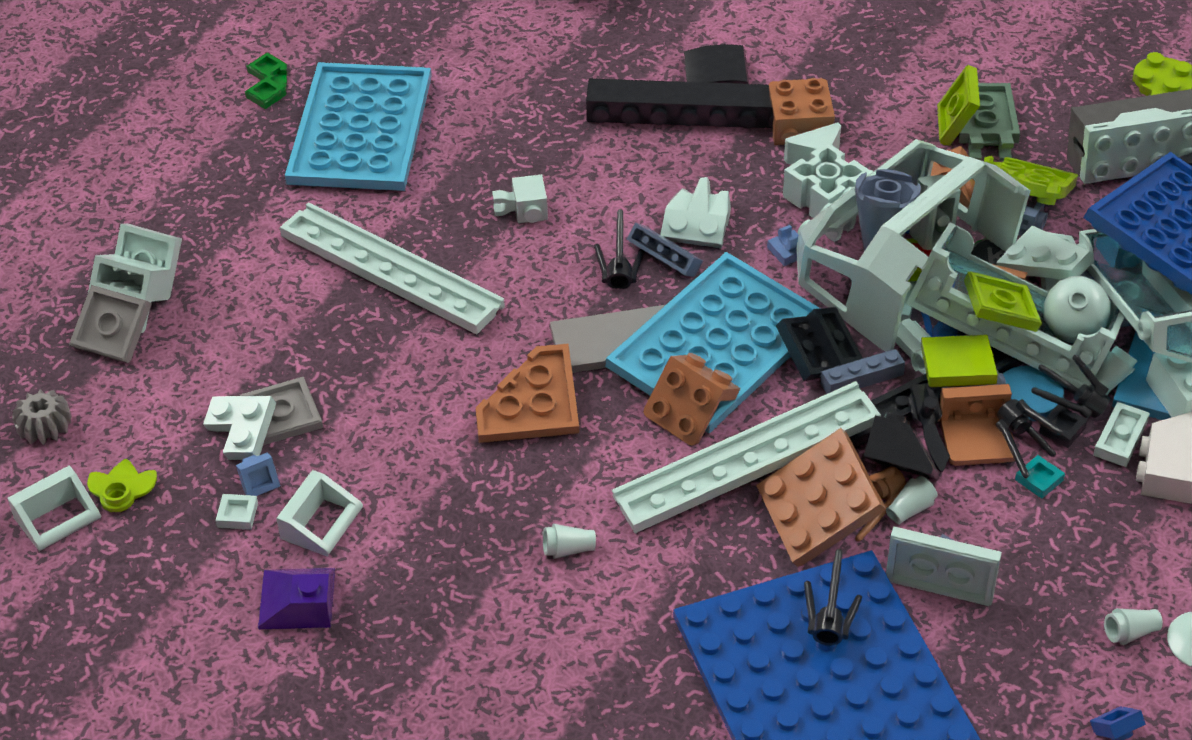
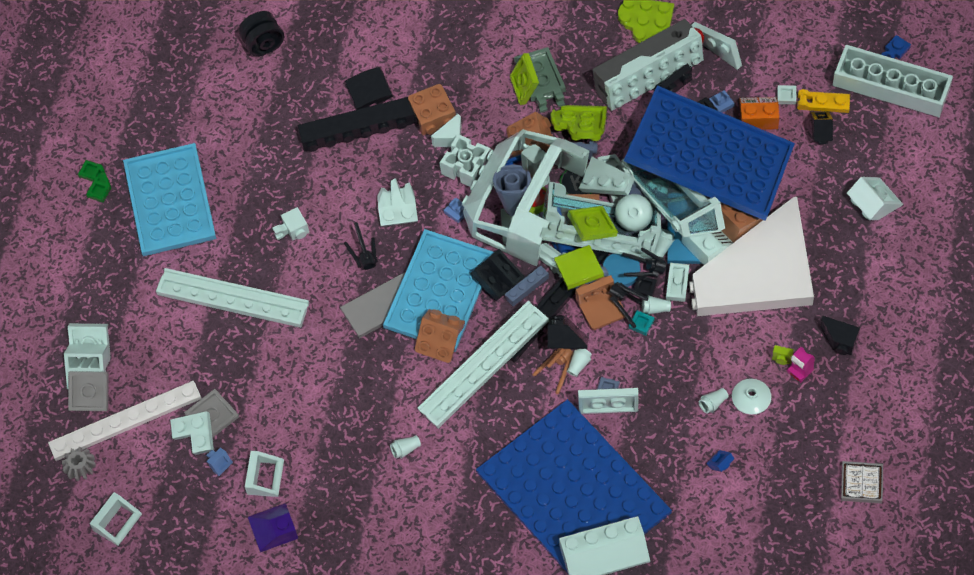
camera: 15 degrees left, 15 degrees up
(123, 483) = (144, 489): lime plate -> none
(151, 380) = (125, 420): none -> white plate
(236, 511) = (216, 486): light aqua tile -> none
(532, 399) = (351, 363): nougat plate -> none
(664, 250) = (387, 236): sand blue piece -> none
(820, 497) = (531, 378): nougat plate -> none
(829, 625) = (560, 455): black plant -> none
(927, 413) = (570, 304): black piece -> none
(1072, 456) = (655, 305): none -> light aqua cone

